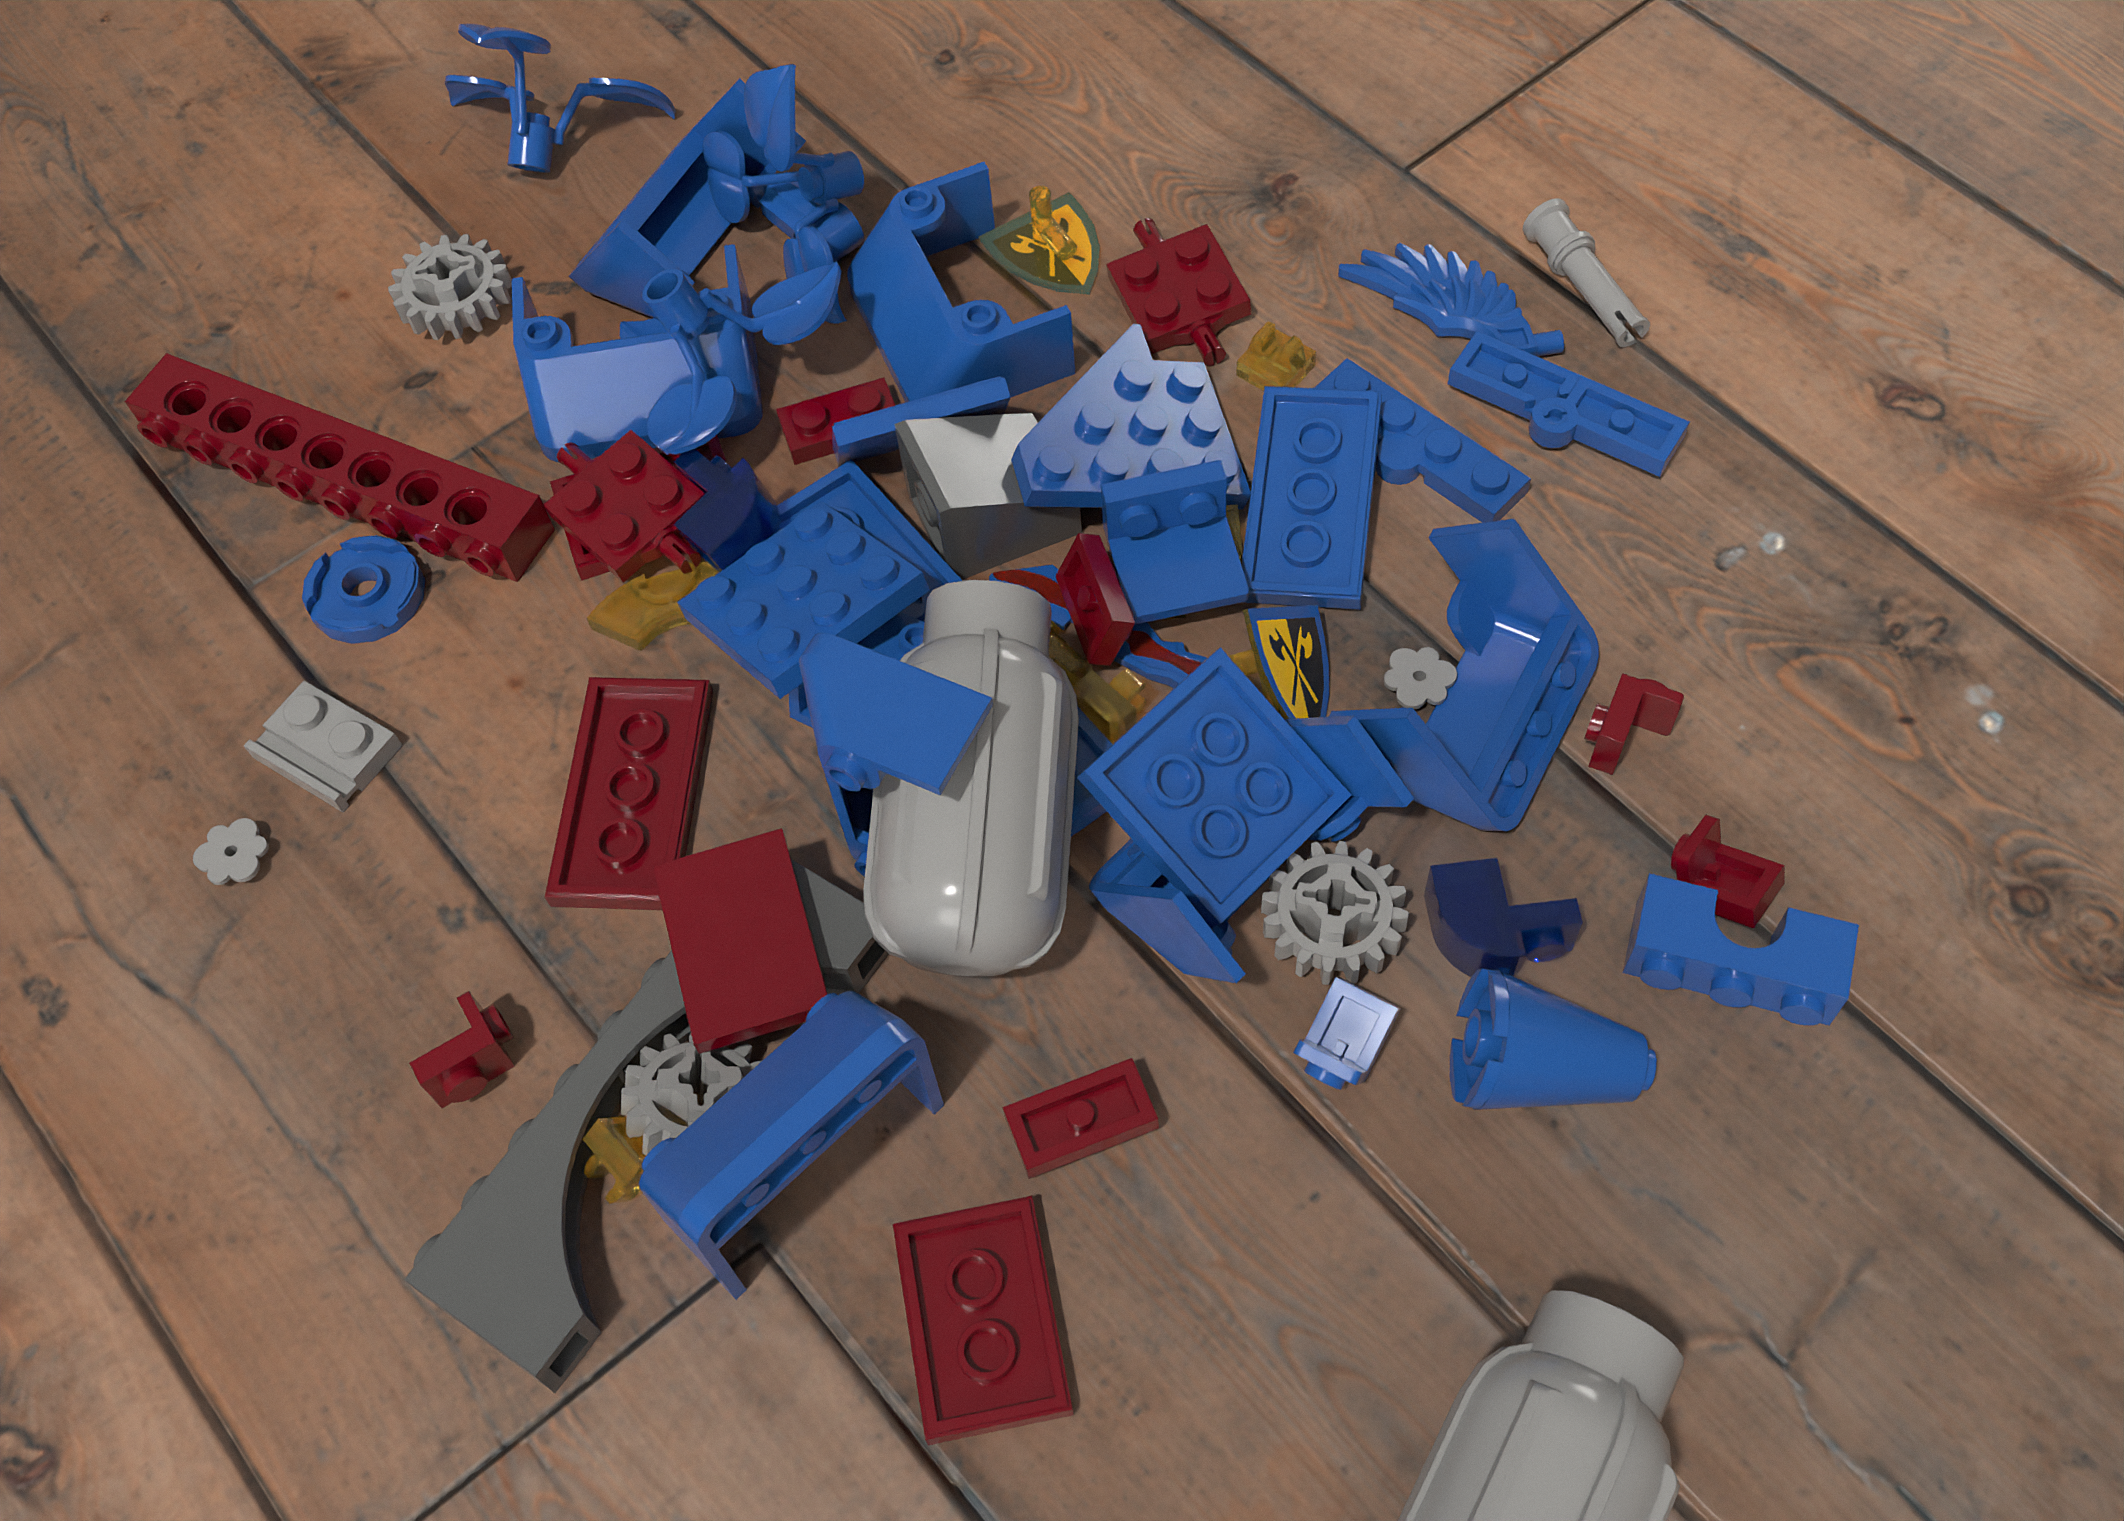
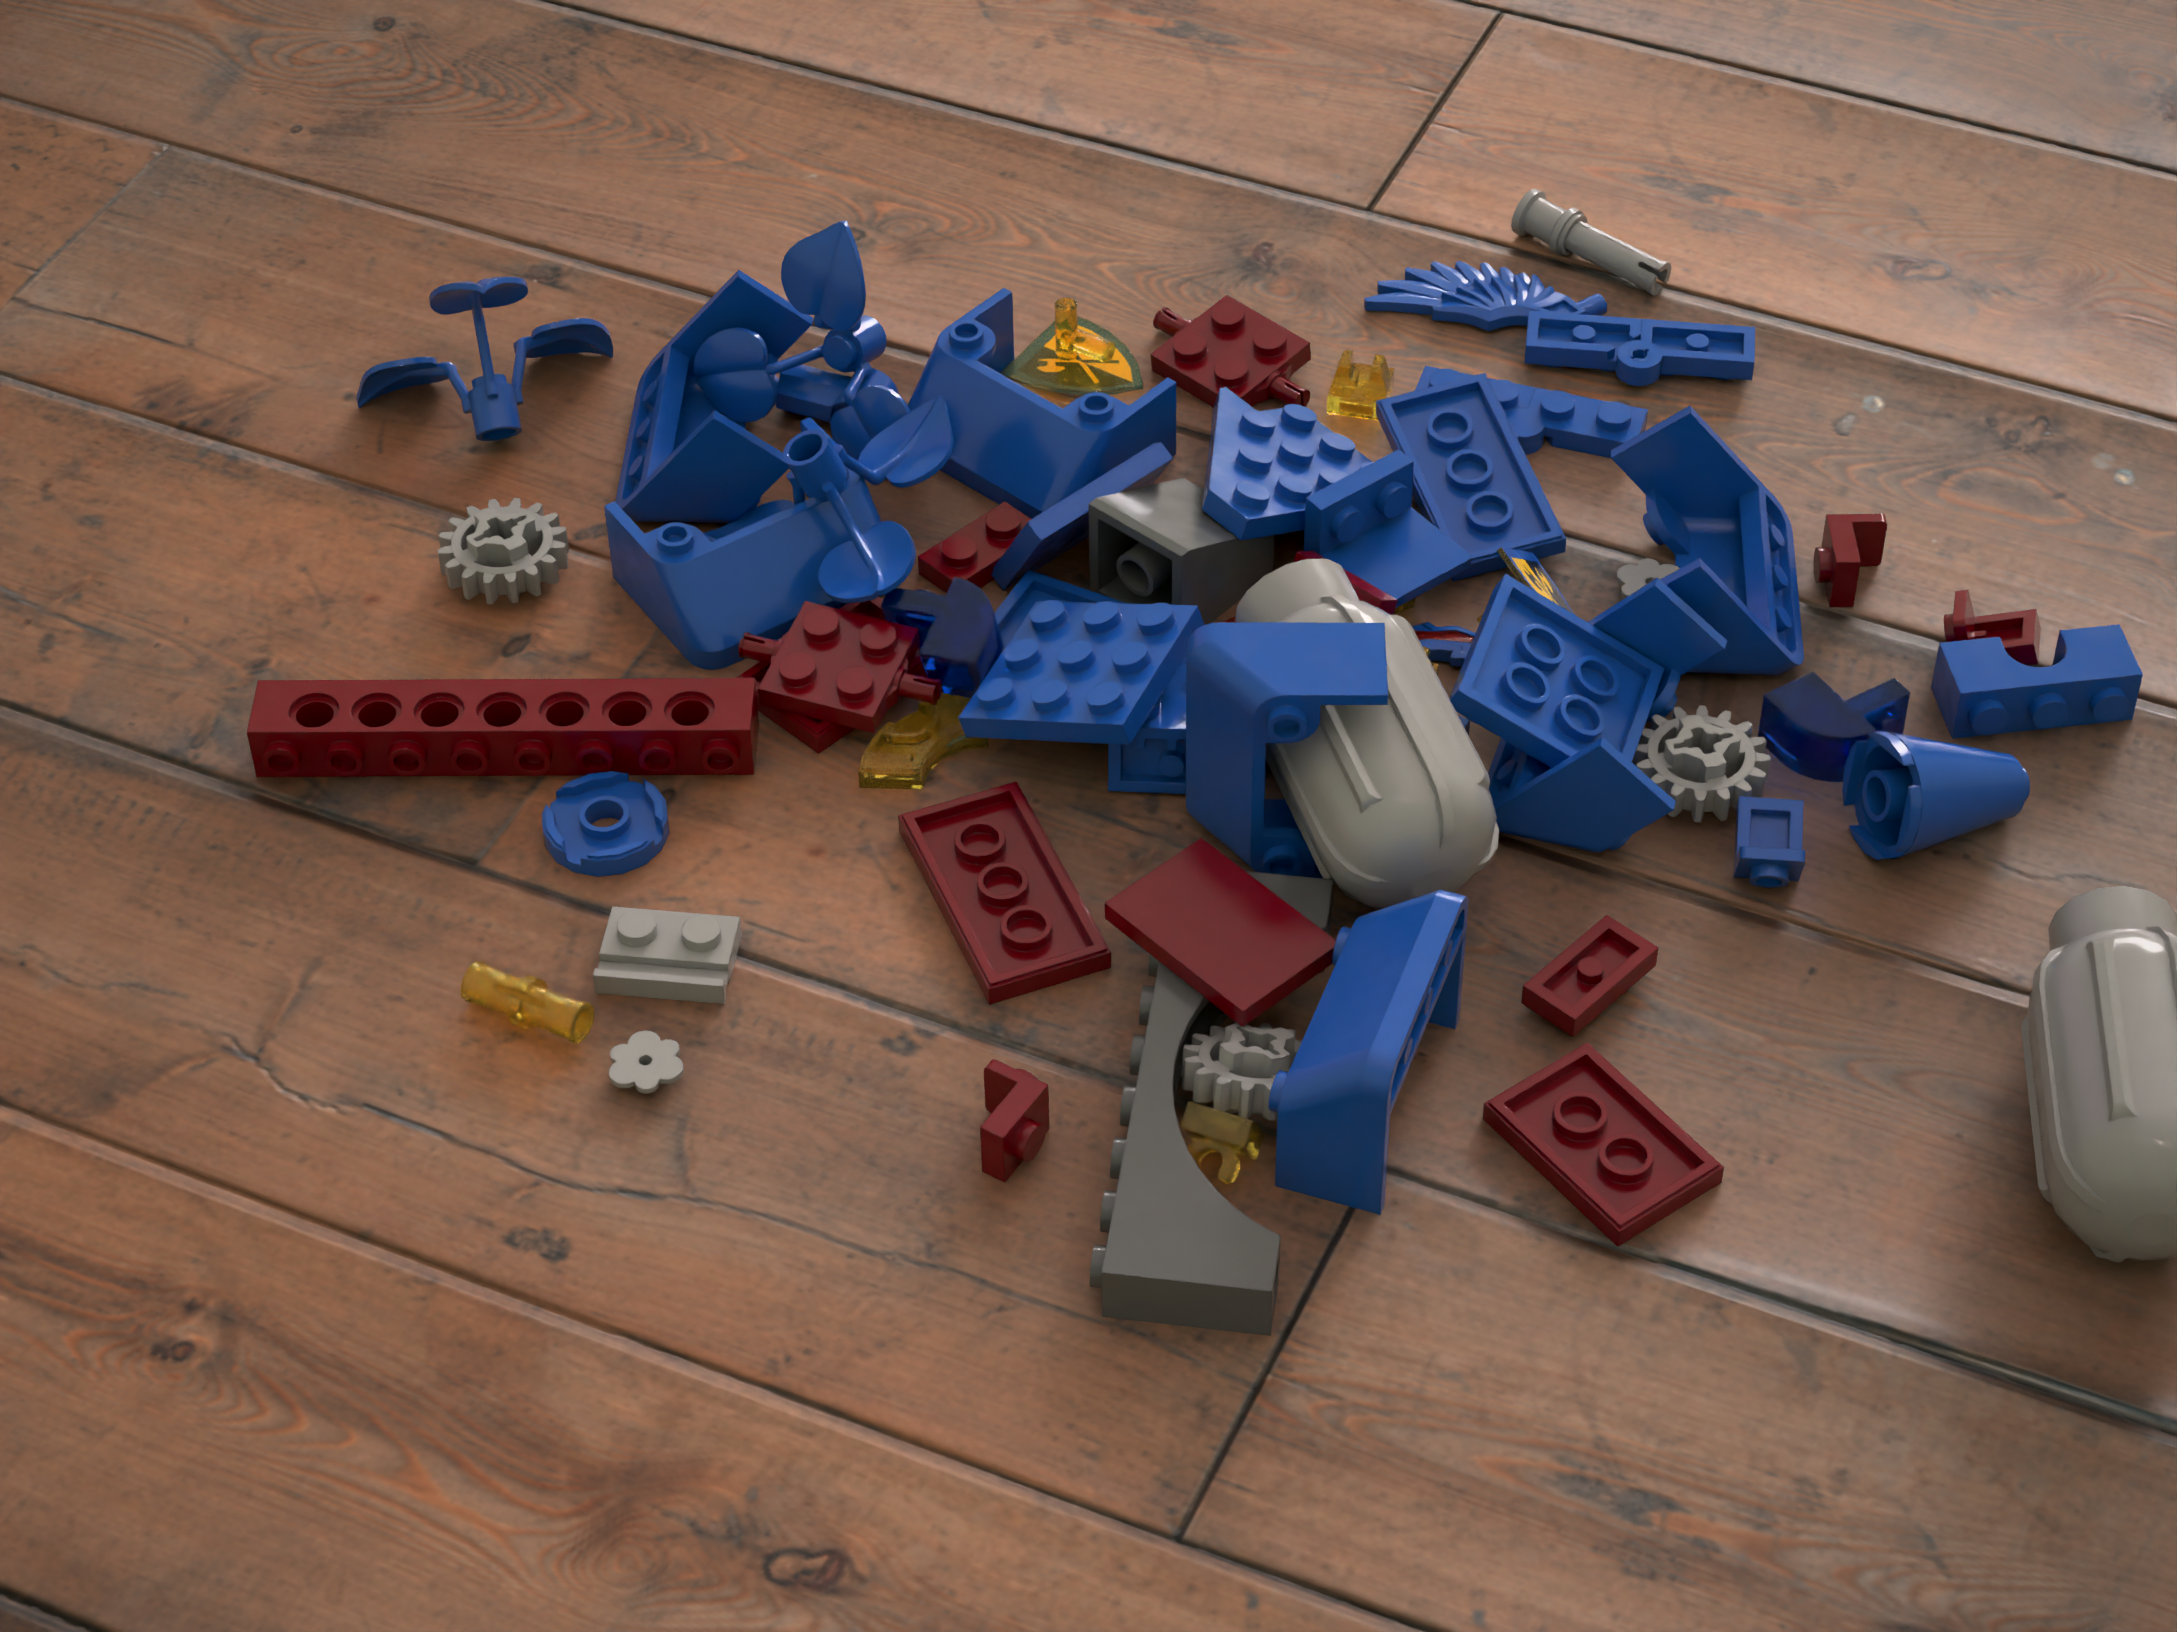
camera: 30 degrees left, 15 degrees down
(179, 751) = (527, 1002): none -> clear yellow pin

